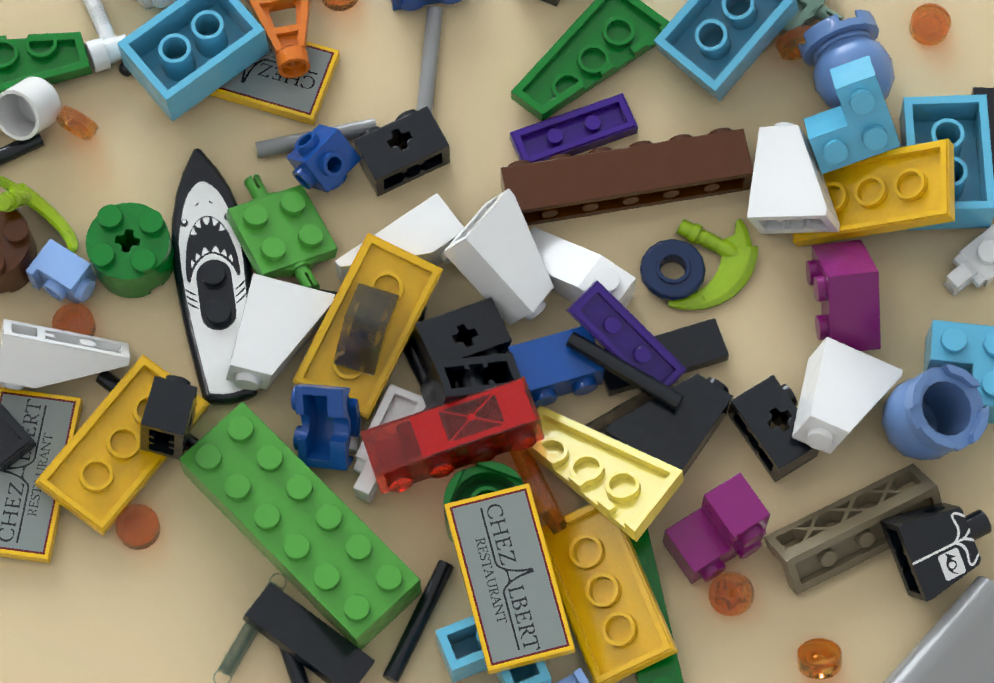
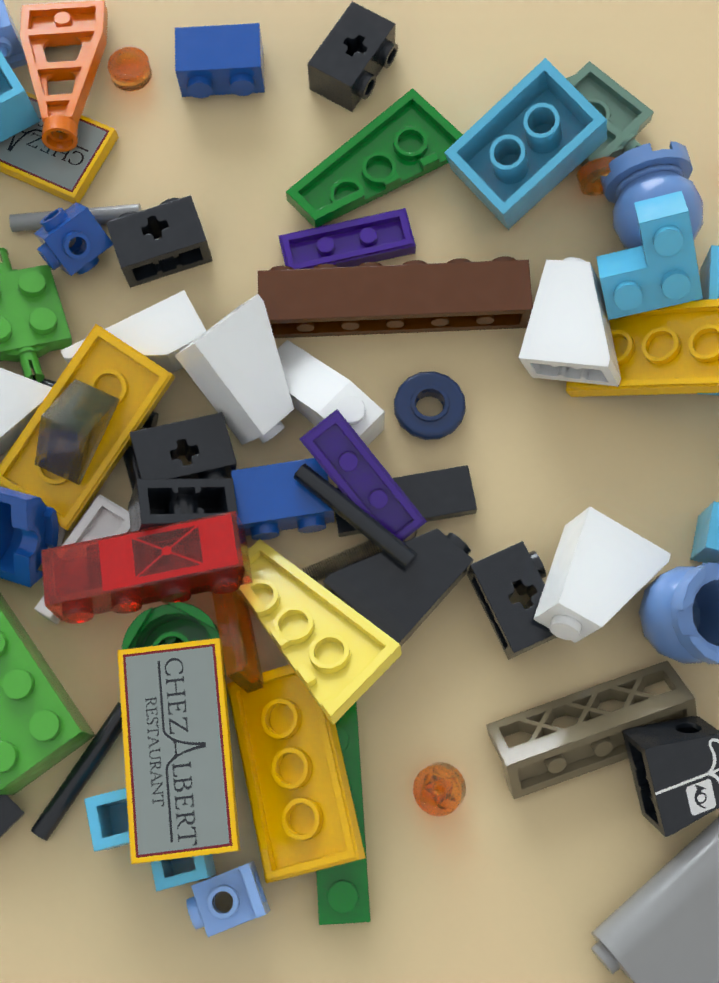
camera: 10 degrees right, 5 degrees up
(429, 58) = (209, 150): light grey bar -> none
(725, 526) = (436, 712): magenta brick -> none
(735, 266) = (498, 413): lime piece -> none
(819, 658) = (530, 882): clear orange tile -> none
(848, 293) = (620, 457): magenta brick -> none

